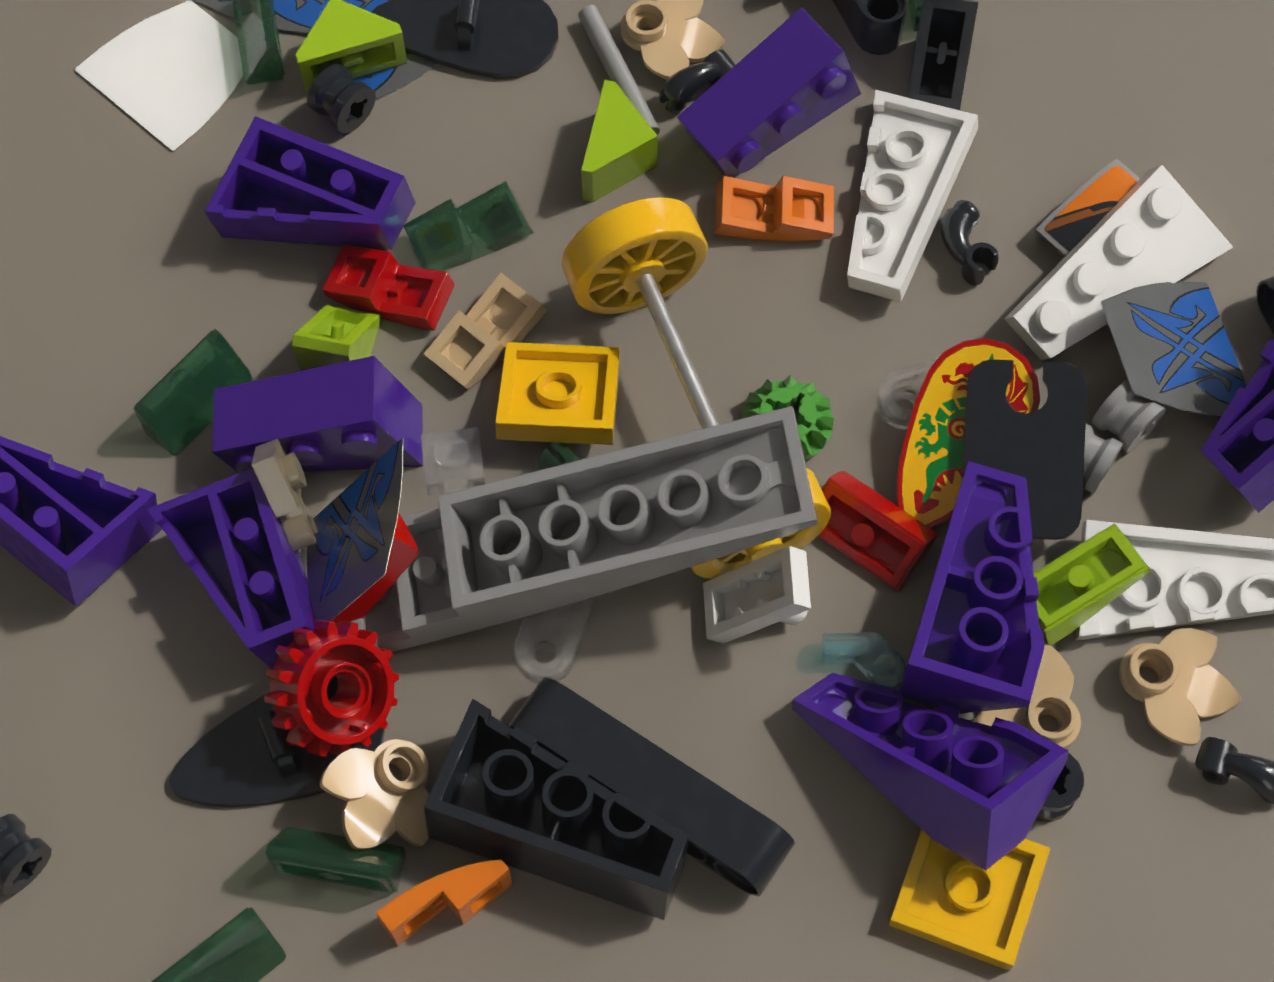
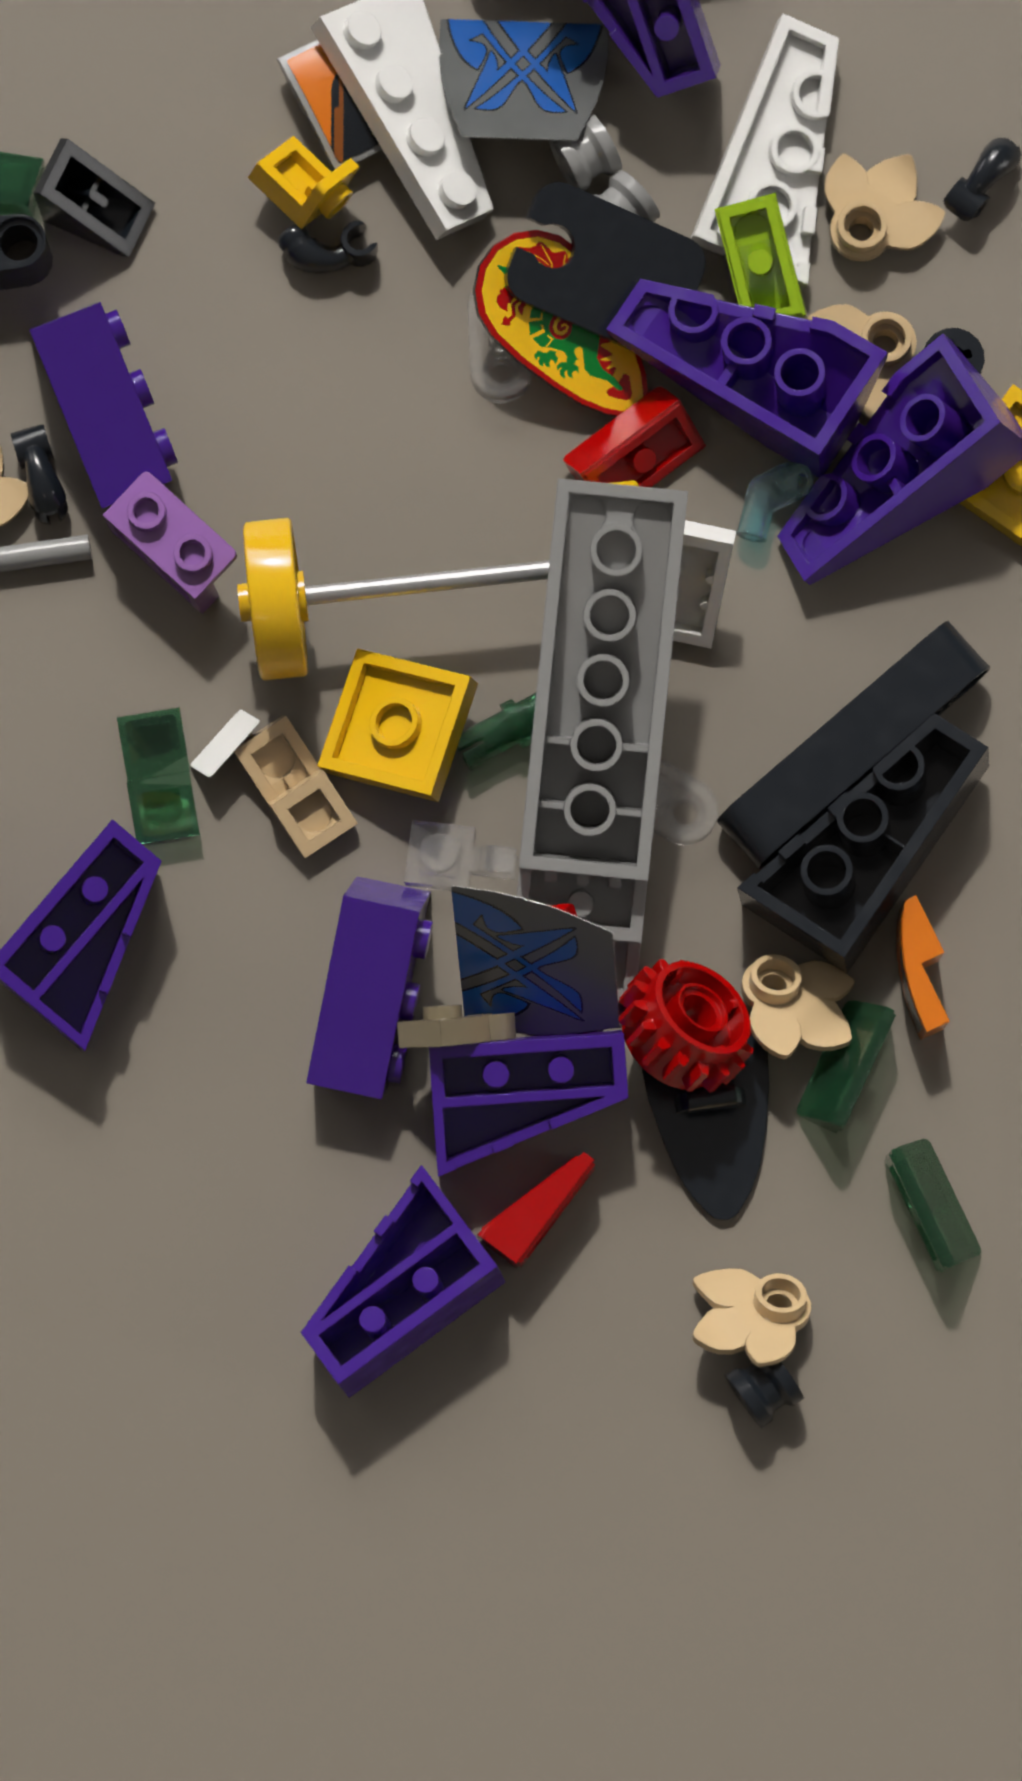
camera: 75 degrees left, 15 degrees up
(72, 817) = (751, 1314): none -> tan plate
(131, 609) = (527, 1221): none -> red slope
(184, 398) = (289, 1113): clear green slope -> none
(335, 337) = (268, 944): lime slope -> none
(379, 285) = (208, 878): red slope -> none
(508, 269) = (225, 743): none -> white sticker
(618, 146) = (99, 583): lime slope -> none
(669, 161) = (171, 539): none -> medium lavender bracket
(781, 212) = (228, 439): orange slope -> none
(813, 414) = (484, 526): bright green gear -> none
(905, 184) = (234, 286): white wing -> none
(1015, 202) = (302, 183): none -> yellow bracket

